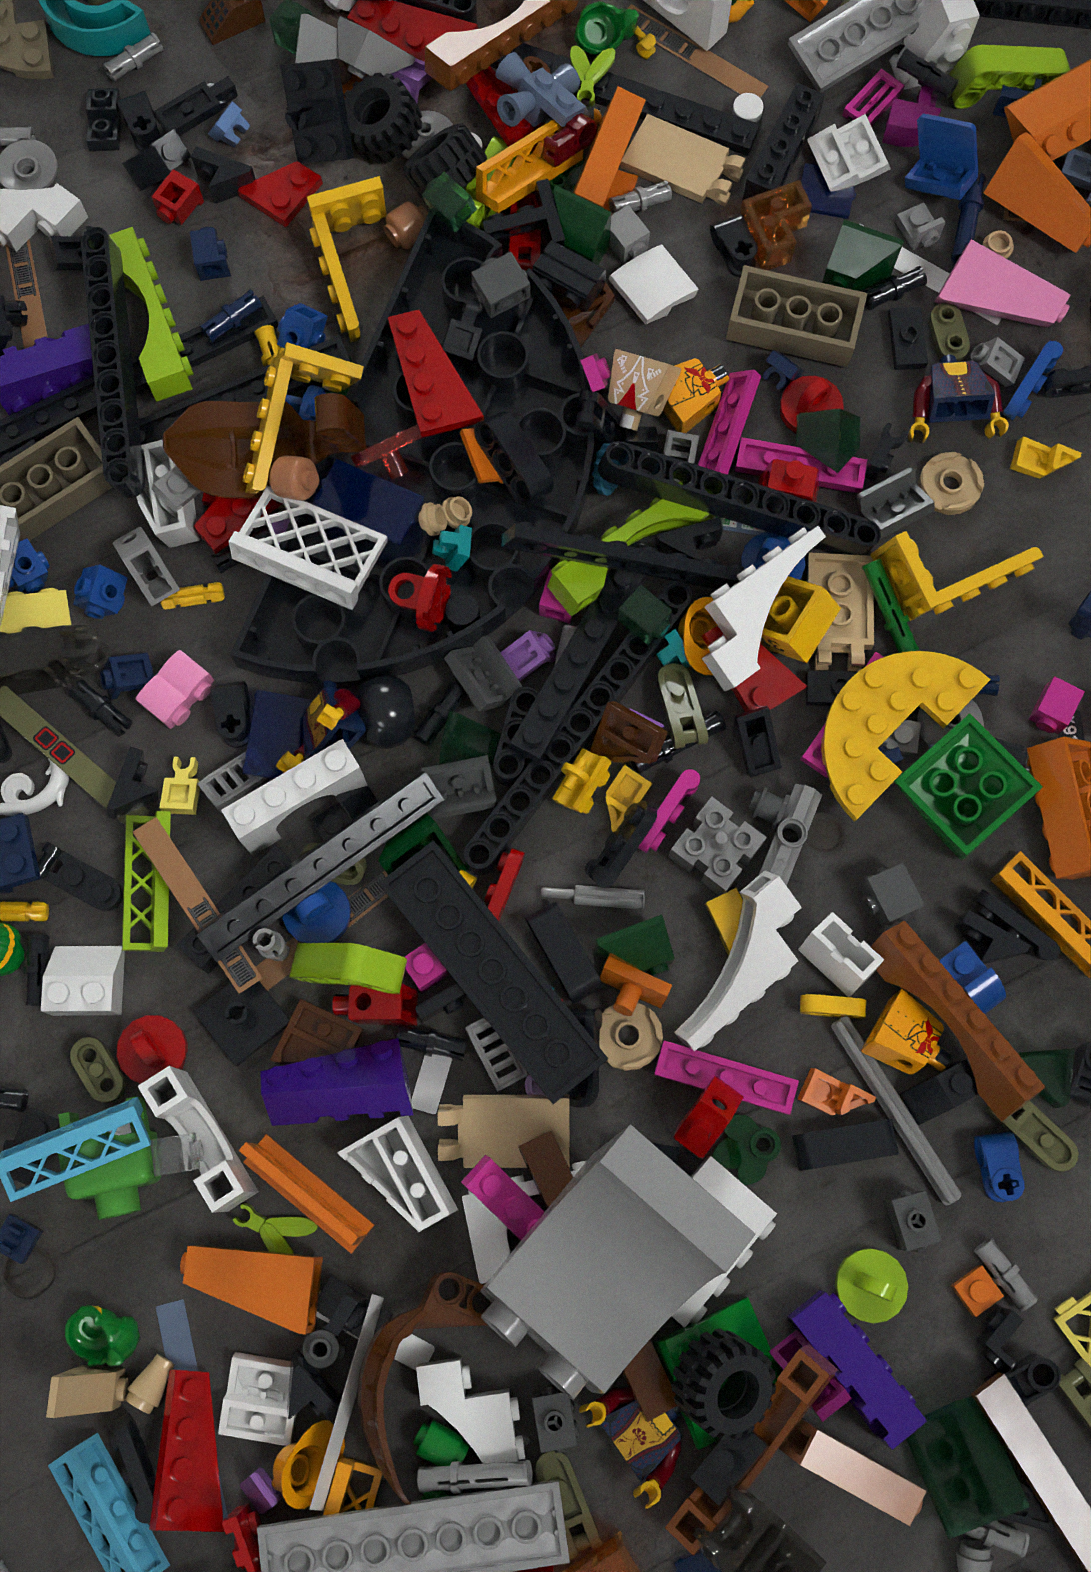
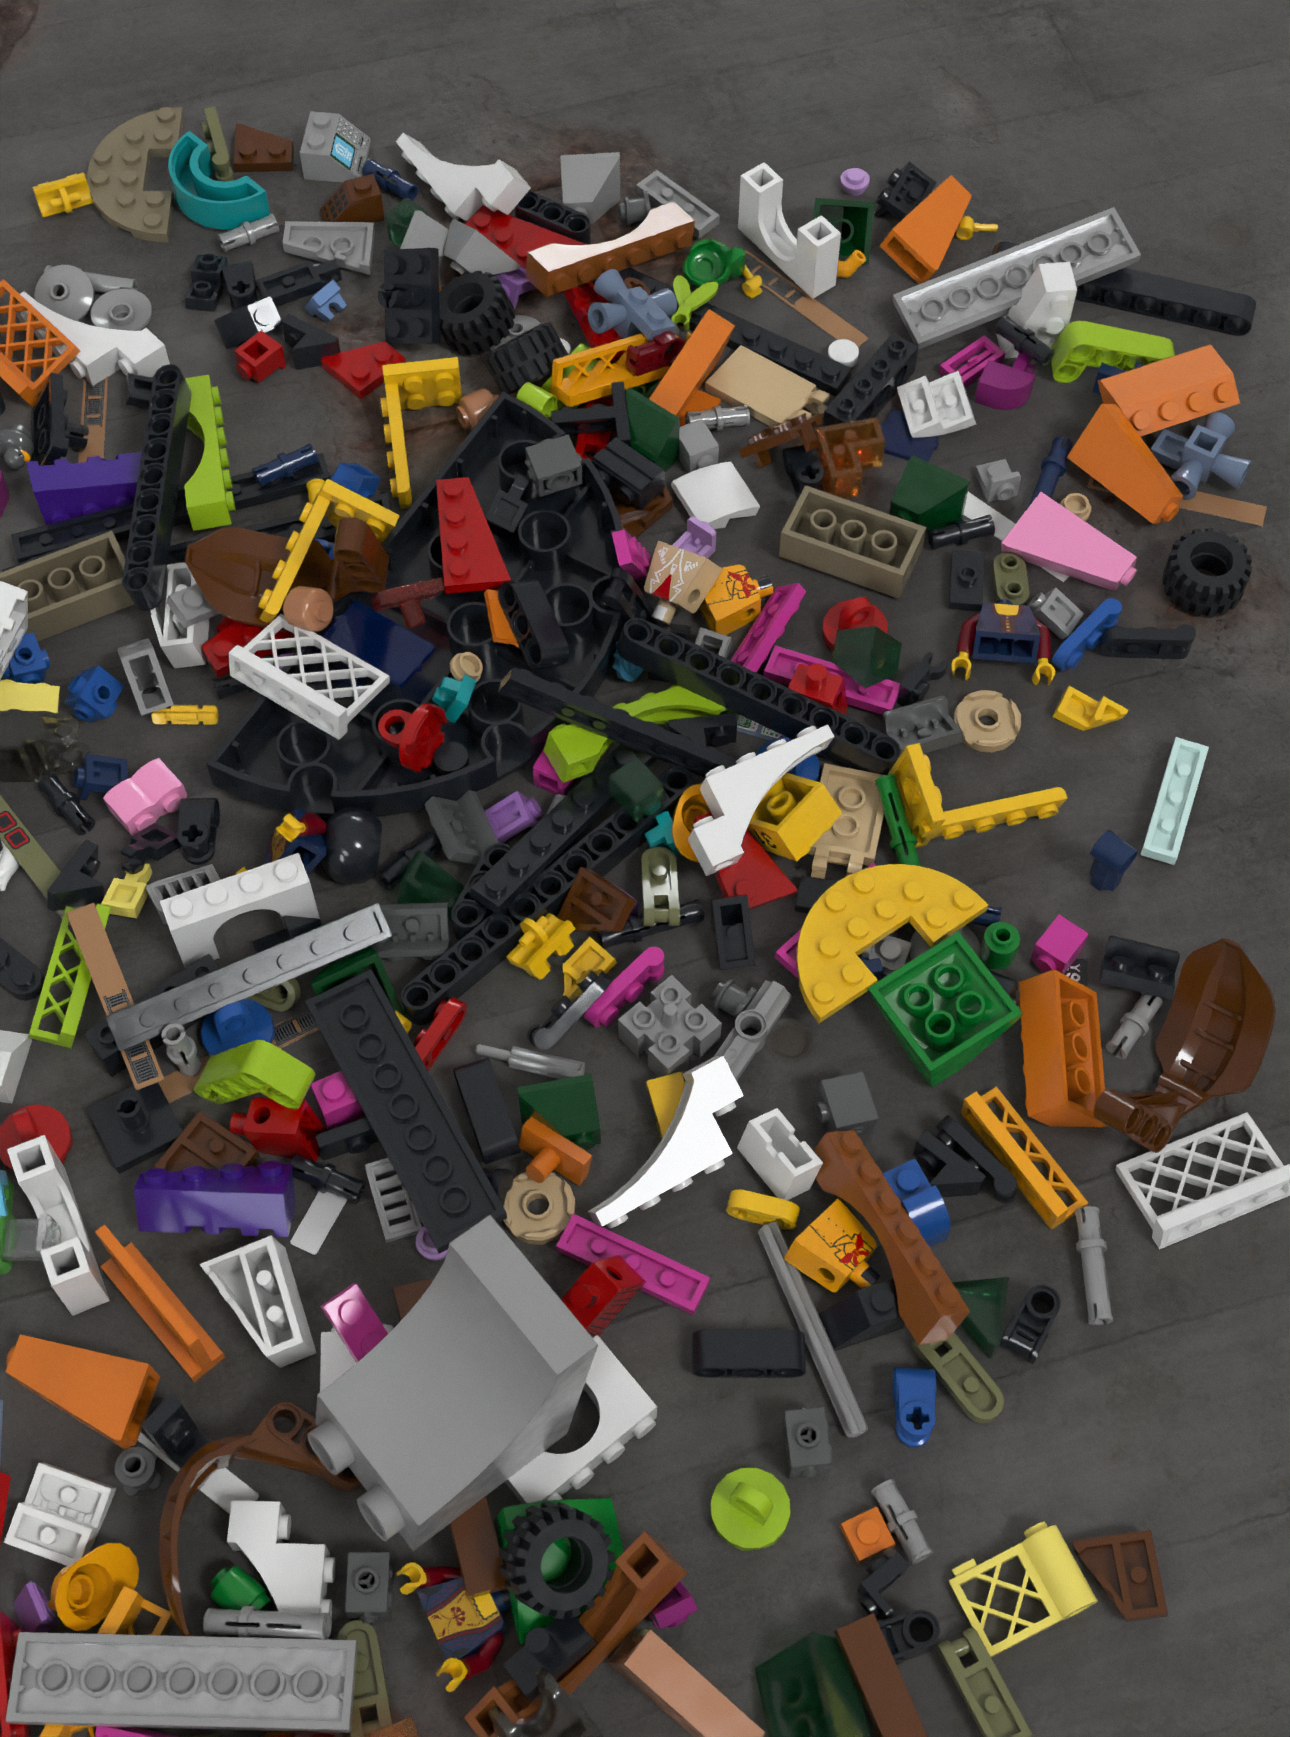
camera: 10 degrees right, 15 degrees down
(191, 736) = (152, 843): none -> black plate
(209, 254) = (278, 410): dark blue brick -> none
(219, 56) = (345, 242): none -> light grey wing
(273, 732) = (238, 844): clear blue piece -> none
(276, 1227) = (117, 1341): lime piece -> none
(309, 1386) = (110, 1497): black slope -> none
(346, 1405) = (142, 1531): white sticker -> none
(432, 518) = (439, 666): tan plate -> none
(449, 201) = (519, 386): clear green brick -> none
(500, 1125) = (376, 1268): tan tile -> none
(646, 337) = (698, 538): none -> lavender bracket
(710, 212) = (779, 434): none -> reddish brown piece
(741, 1152) = (634, 1341): dark green plate -> none
(782, 366) = (830, 587): dark blue tile -> none
(831, 1095) = (744, 1302): orange slope -> none
(867, 1377) = (723, 1601): dark purple wedge -> none
(946, 157) = (1033, 417): blue bracket -> none
(1004, 714) = (999, 945): none -> green brick

